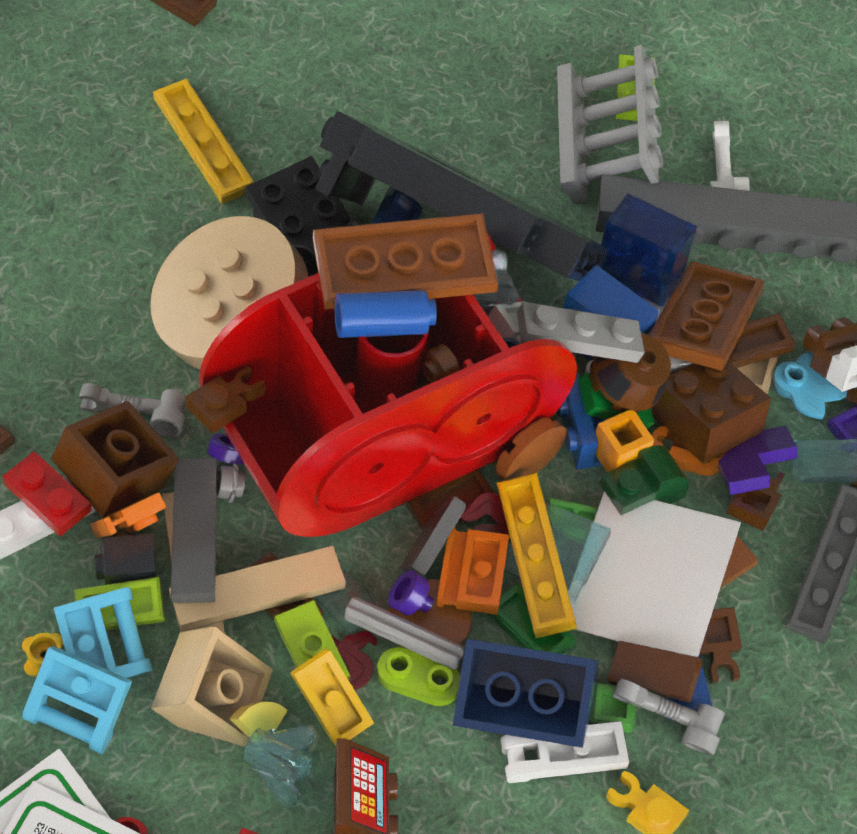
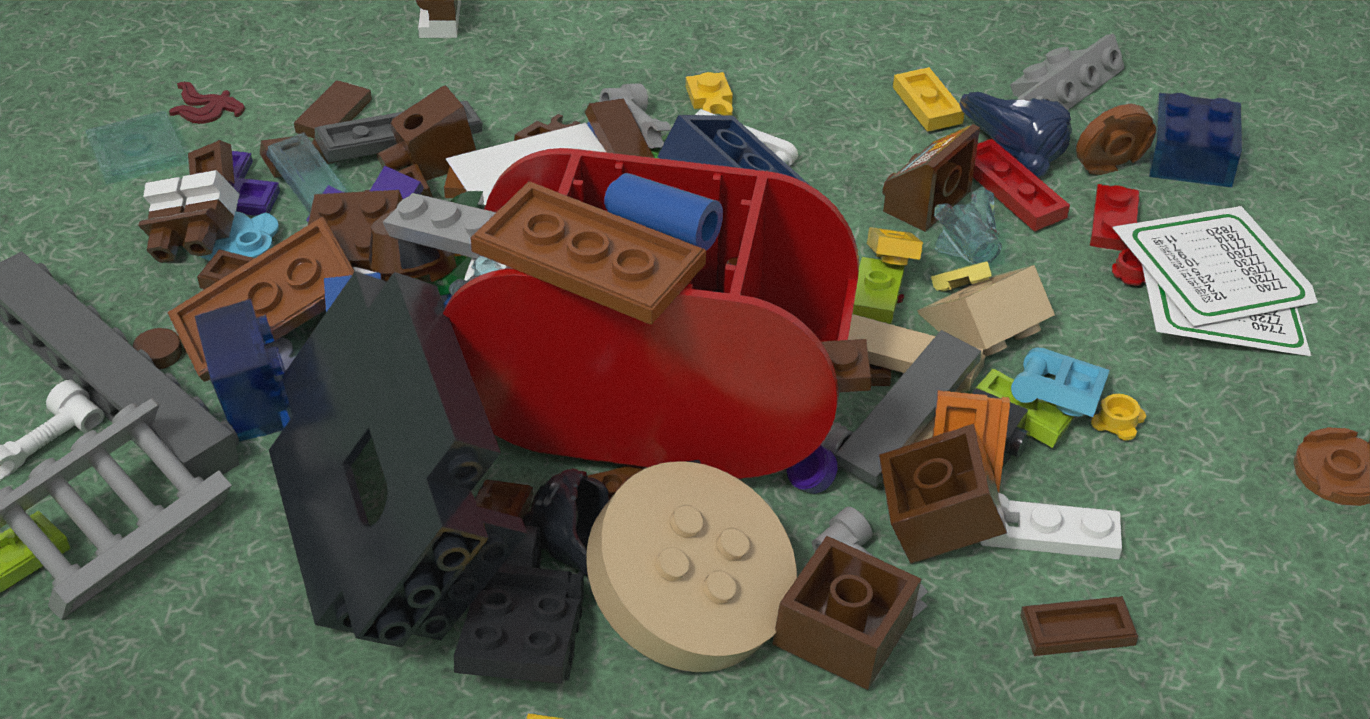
camera: 135 degrees left, 15 degrees down
(47, 493) = (1032, 513): red plate -> none
(80, 686) = (1117, 358): medium azure plate -> none
(116, 339) = (846, 612): none -> reddish brown brick
(745, 262) = (161, 345): none -> reddish brown tile
(787, 536) = (429, 135): none -> reddish brown torso

